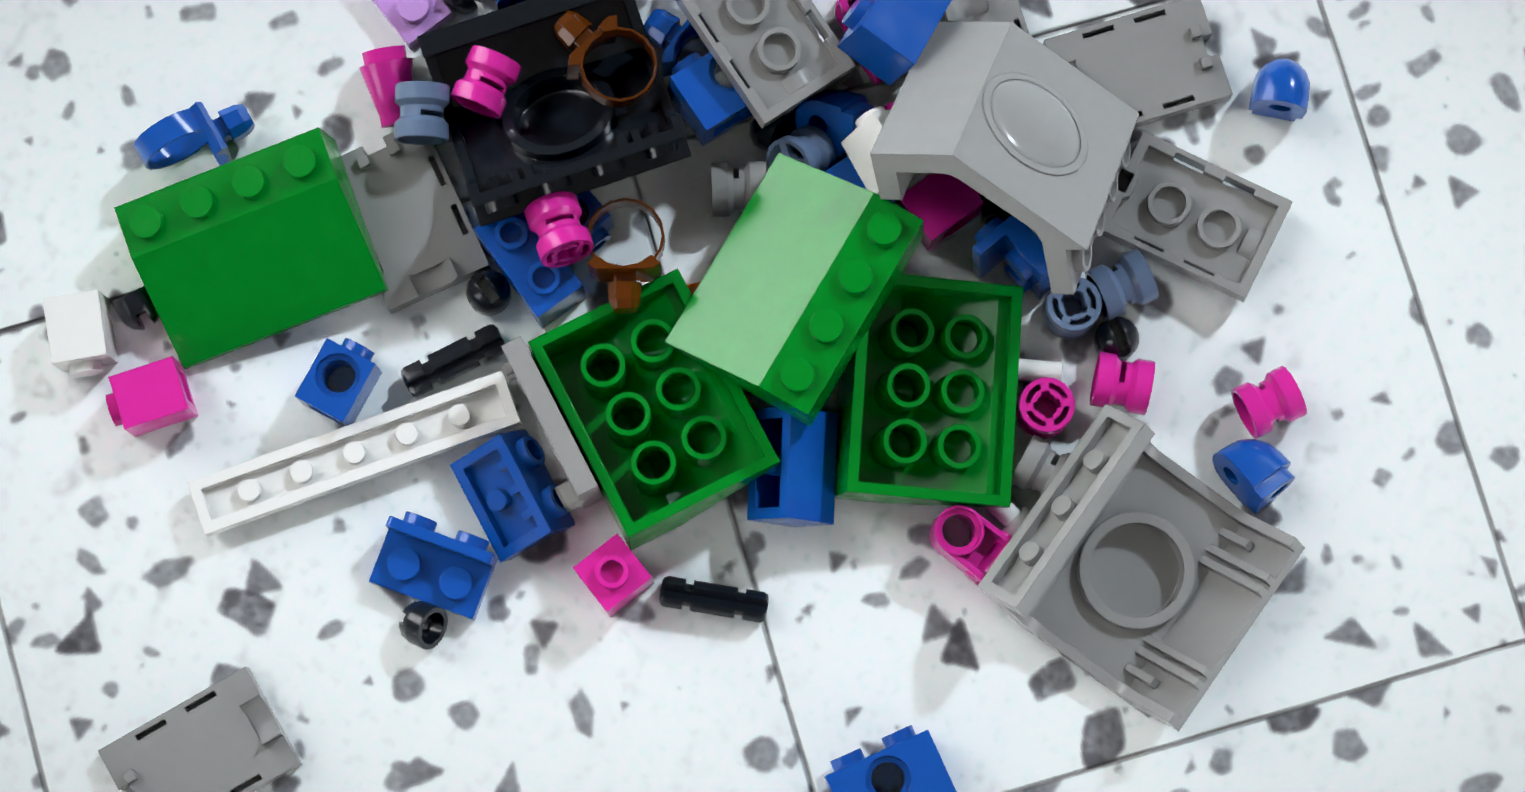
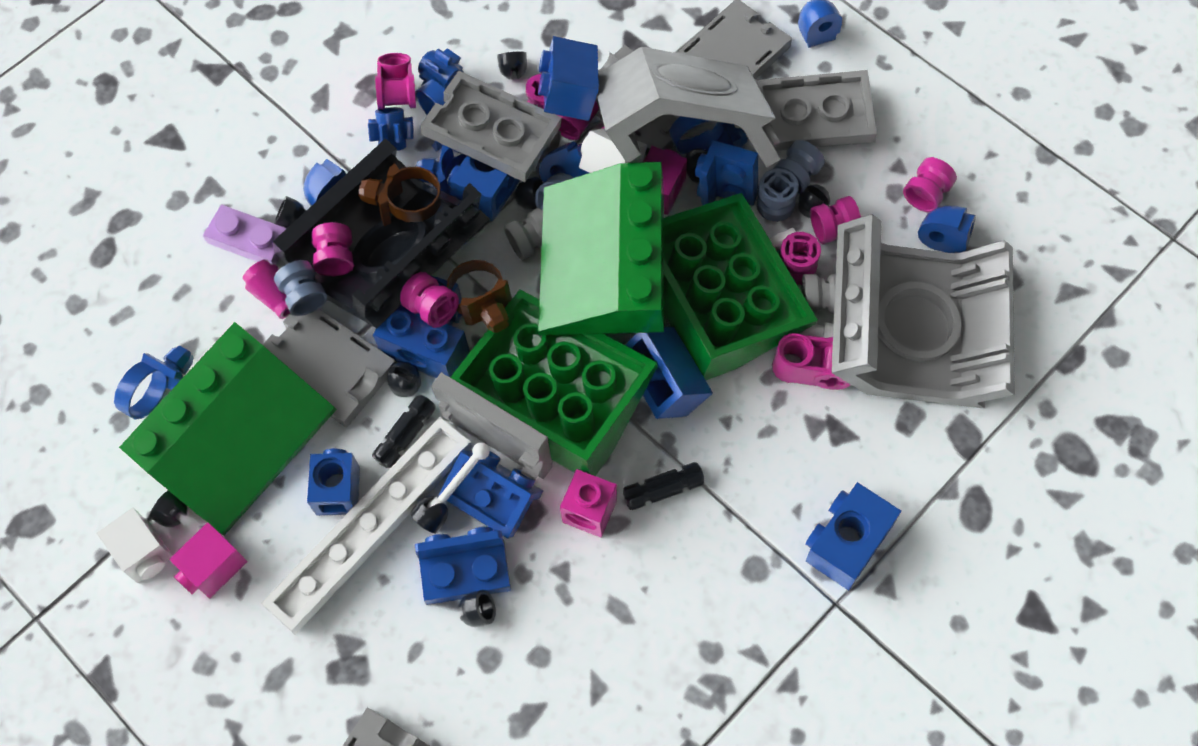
camera: 25 degrees left, 15 degrees down
(432, 481) = (432, 510): none -> hinge

